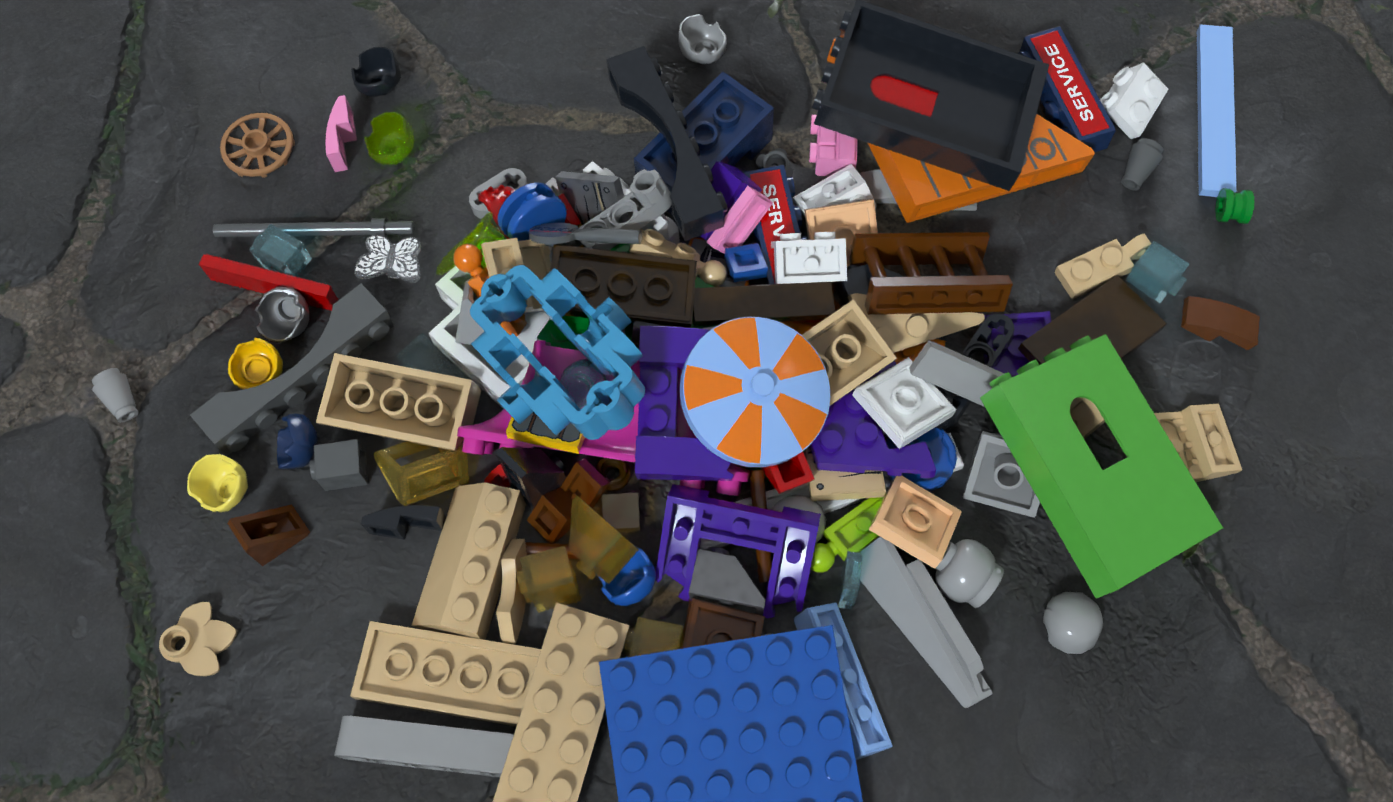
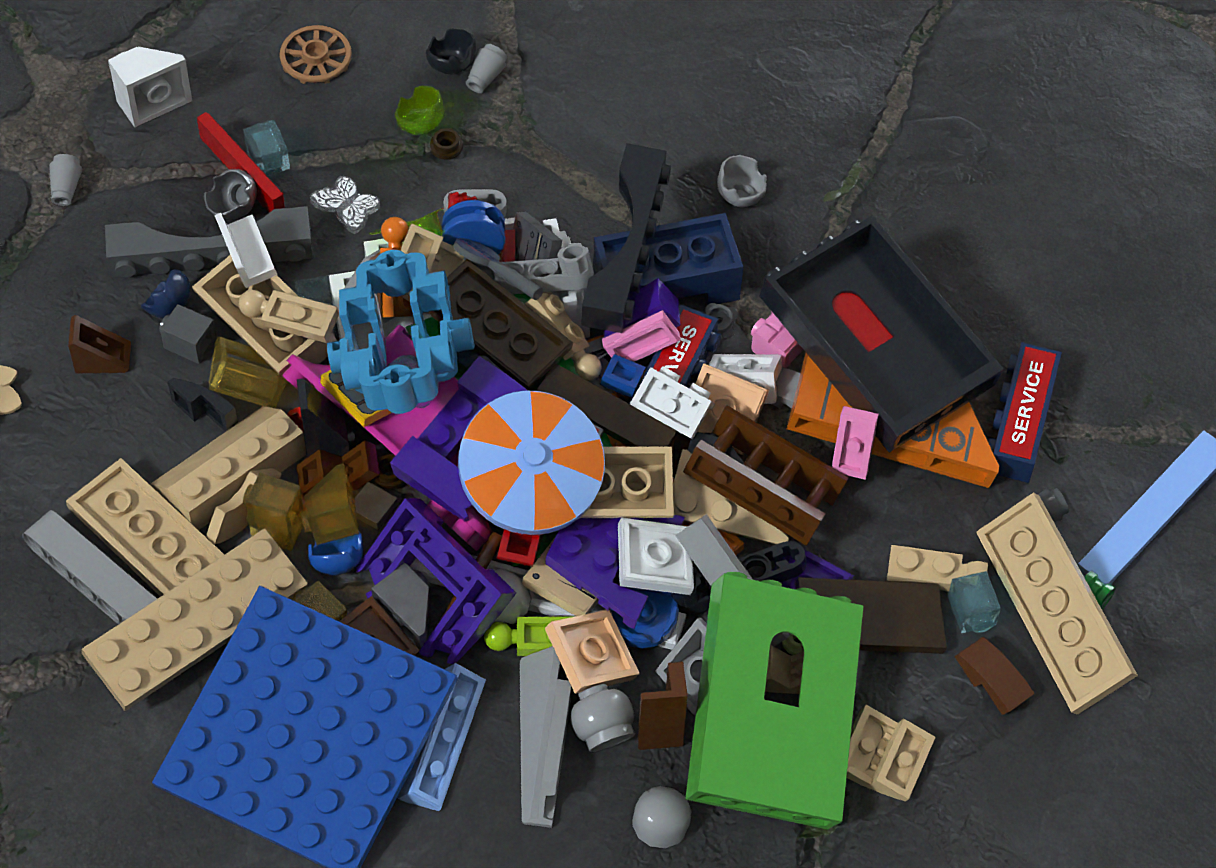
camera: 30 degrees right, 10 degrees down
(130, 259) = (149, 83): none -> white slope
(217, 482) = (88, 288): light yellow hair -> none
(254, 364) = (182, 217): yellow hair -> none
(339, 131) = (385, 80): bright pink slope -> none
(344, 357) = (247, 250): none -> white panel
(377, 226) = (357, 173): dark grey bar -> none
(415, 69) = (486, 67): none -> light grey cone
(429, 148) = (446, 144): none -> dark brown plate
(429, 391) = (291, 314): none -> tan plate
(850, 580) = (502, 660): clear light blue tile -> none
(980, 199) = (854, 442): none -> bright pink plate
(1025, 525) = (664, 712): none -> reddish brown panel
(1134, 99) = (1083, 455): white bracket -> none
(1222, 232) = (1056, 604): none -> tan plate

